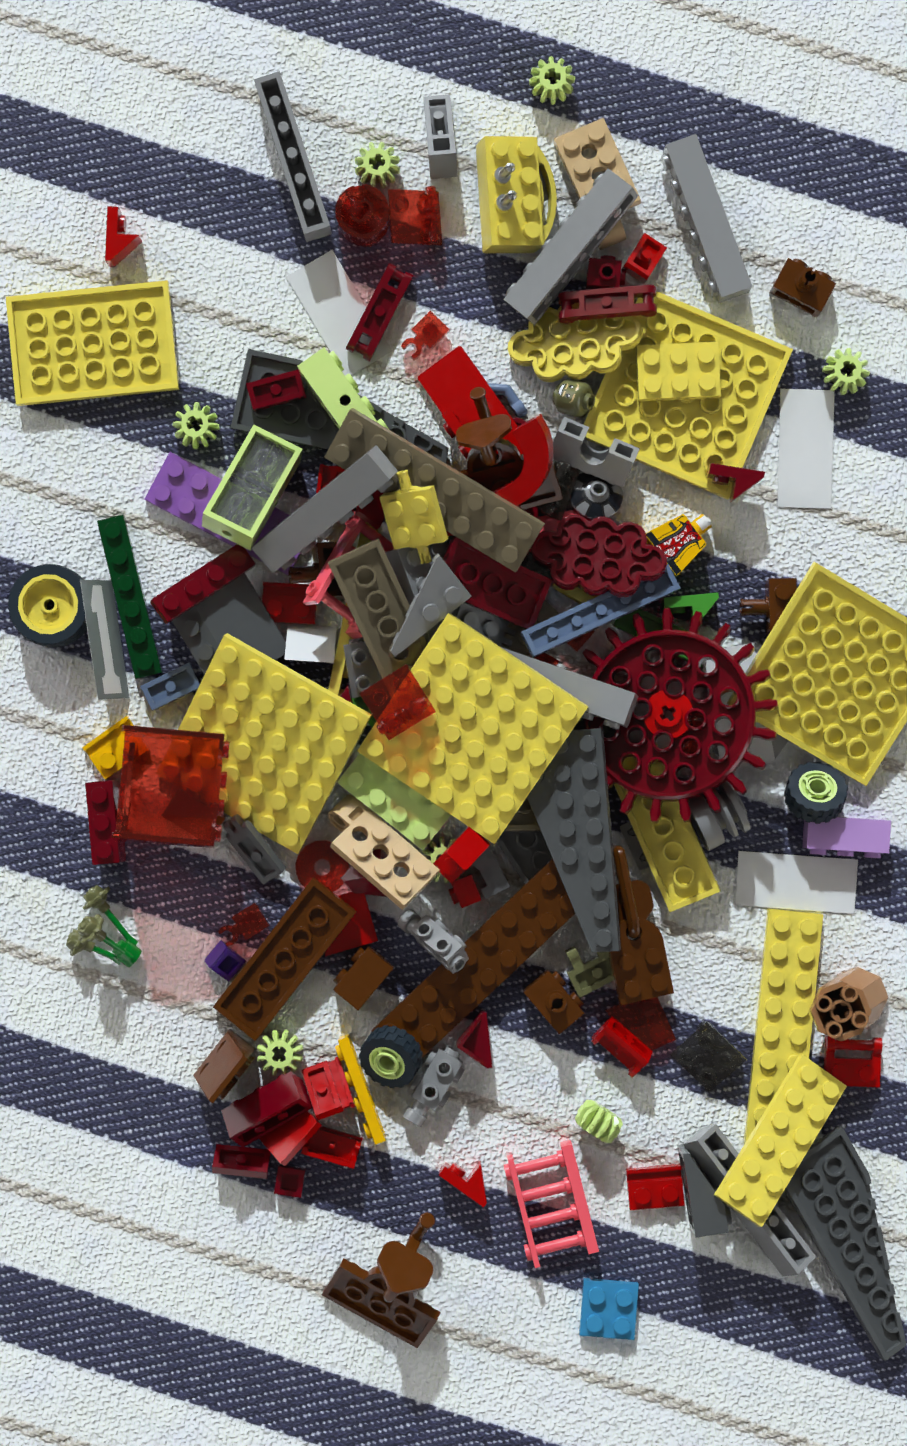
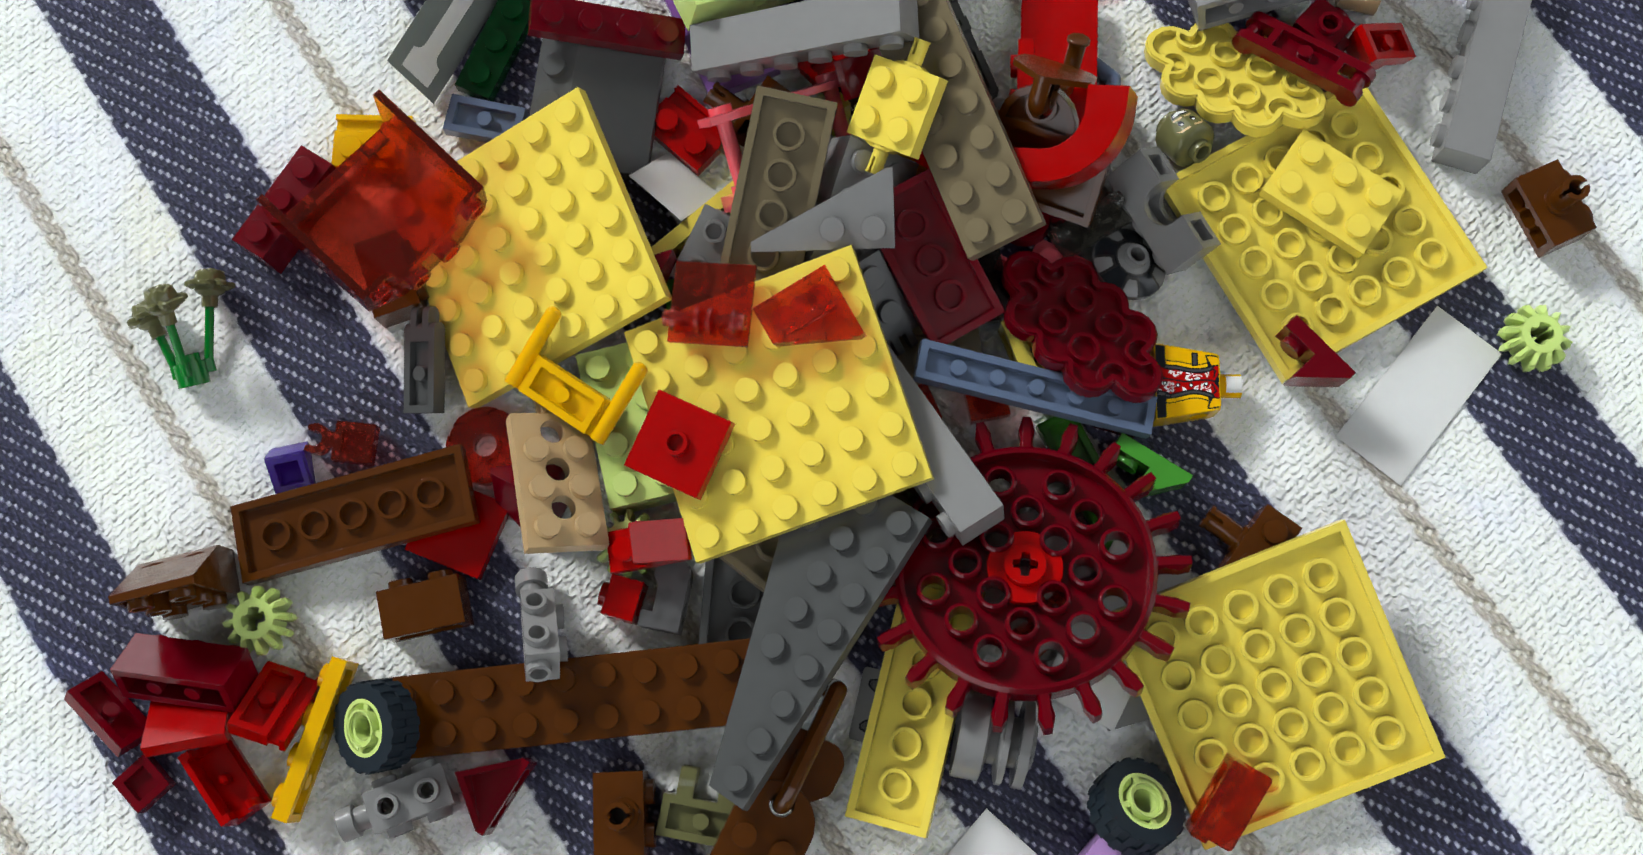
camera: 40 degrees right, 10 degrees down
(351, 808) = (565, 393): none -> yellow plate
(438, 790) = (679, 444): none -> red plate
(456, 669) = (809, 313): none -> clear red wing
(860, 754) = (1228, 803): none -> clear red panel

